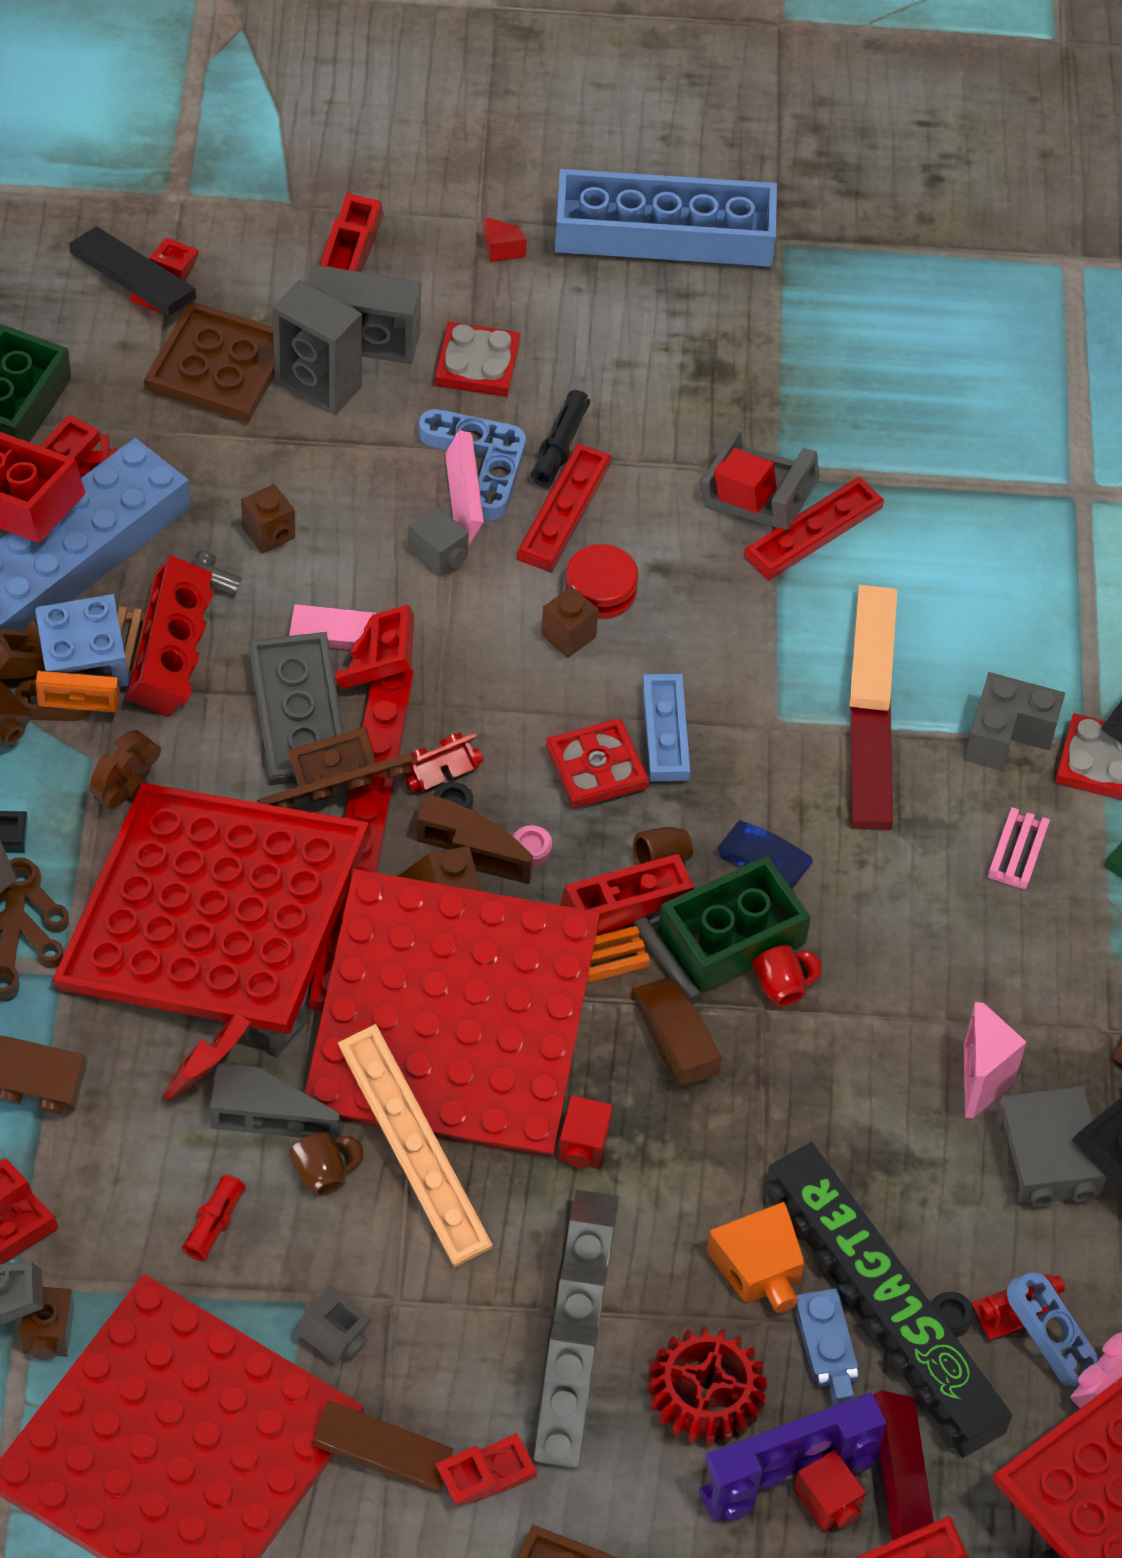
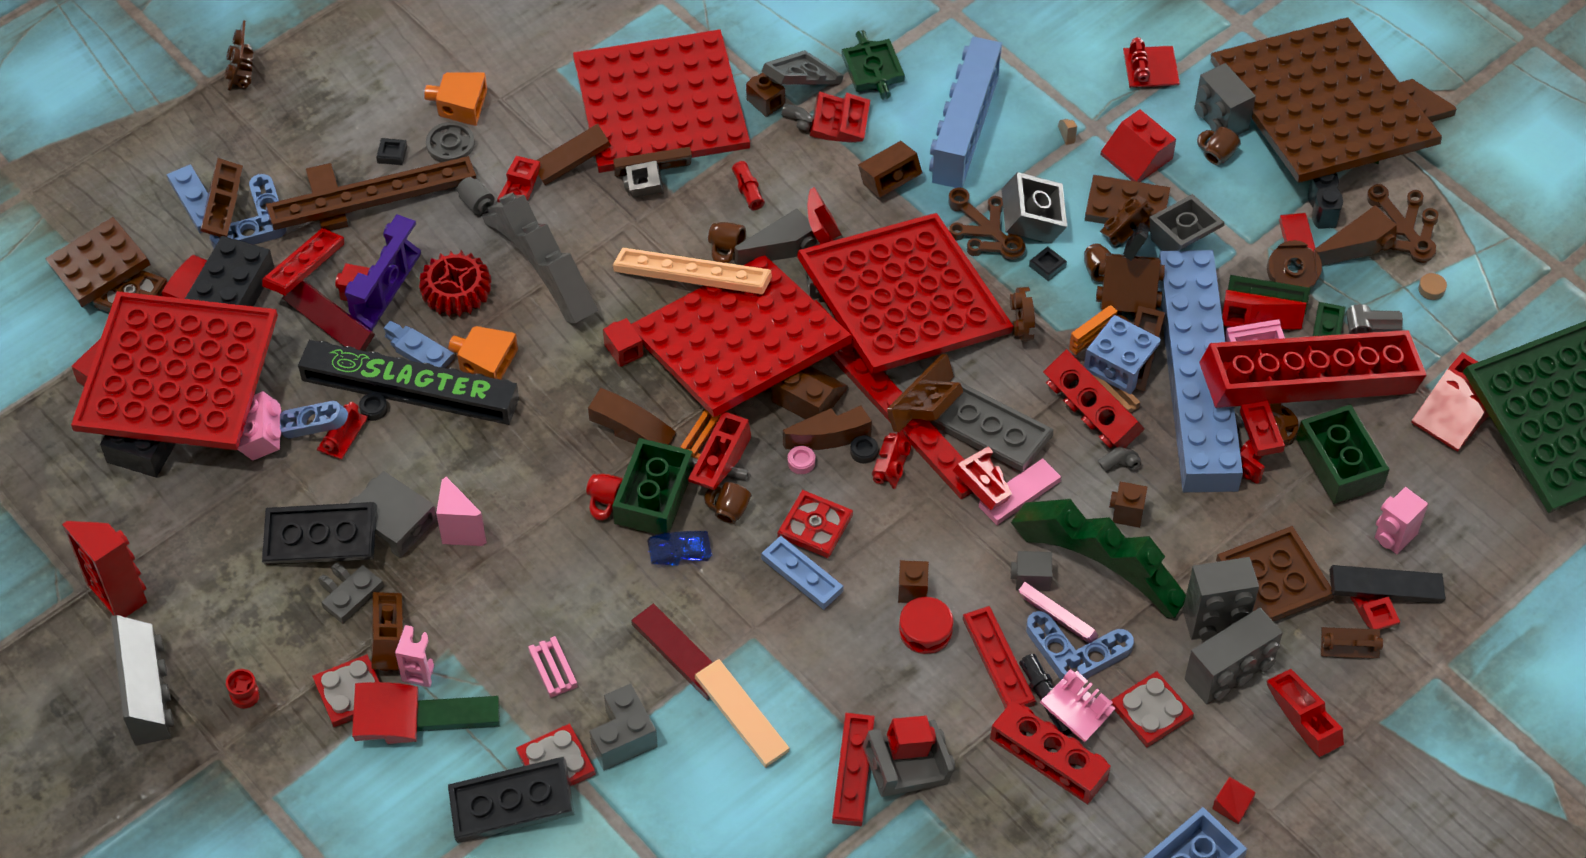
camera: 140 degrees right, 0 degrees up
(39, 1251) = (798, 113): none -> dark grey arm
(50, 291) = (1400, 520): none -> bright pink brick
(242, 266) = (1351, 642): none -> reddish brown hinge
(295, 1343) = (665, 160): none -> reddish brown tile
(370, 508) = (1101, 540): none -> dark green arch
(551, 397) = (1076, 706): none -> bright pink hinge
(561, 1495) = (475, 195): none -> dark grey brick
(619, 390) = (1081, 783): none -> red brick

